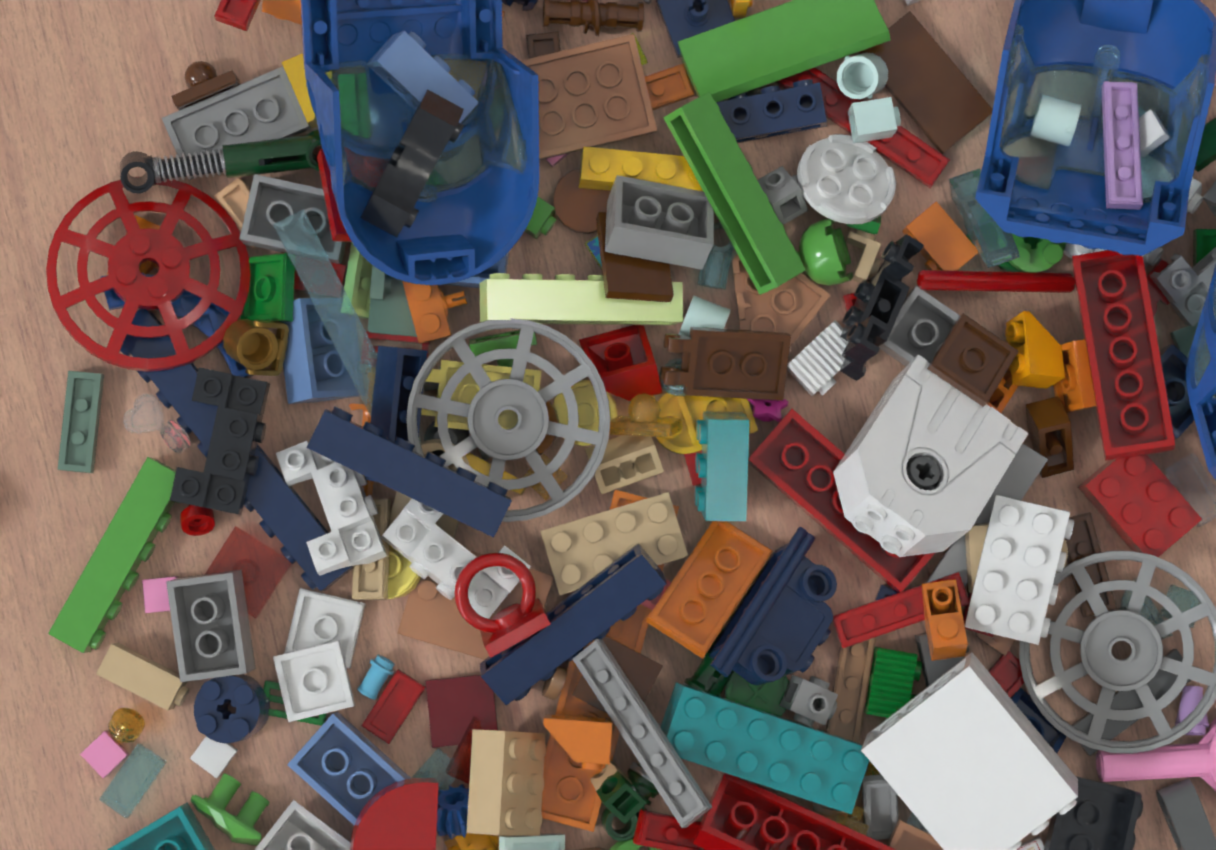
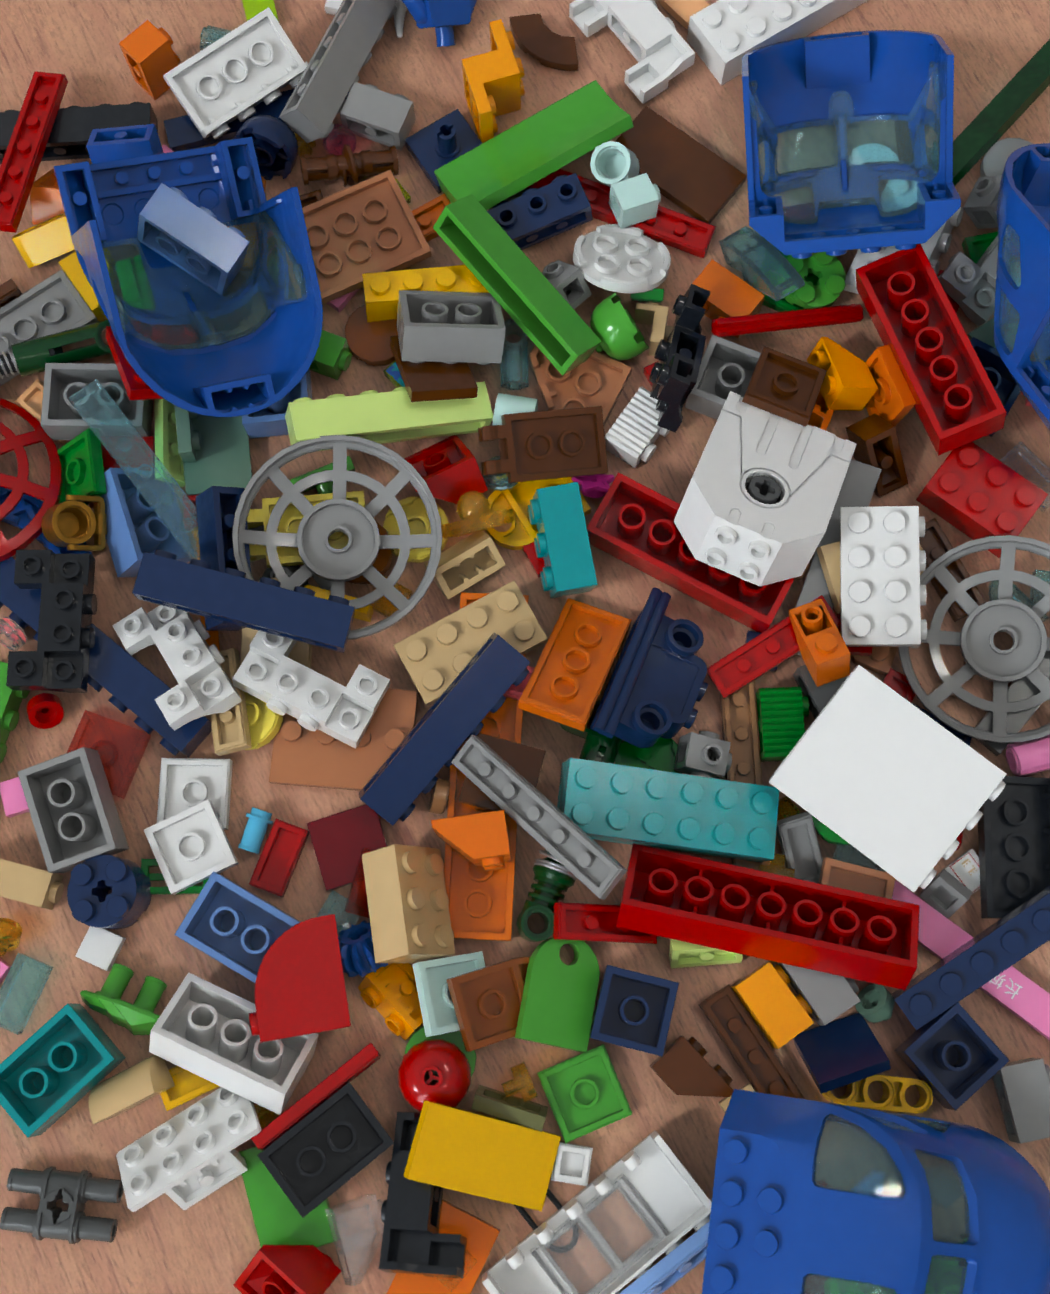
camera: 10 degrees left, 10 degrees down
(274, 34) = (44, 241): none -> yellow beam
(411, 165) = (186, 322): black brick -> none
(430, 310) = (240, 453): orange plate -> none
(511, 623) = (382, 734): red tile -> none
(617, 792) = (527, 887): dark green leg -> none
(1055, 120) = (806, 163): light aqua piece -> none
(1122, 145) = (876, 168): lavender tile -> none
(1151, 132) = (895, 155): white tile -> none

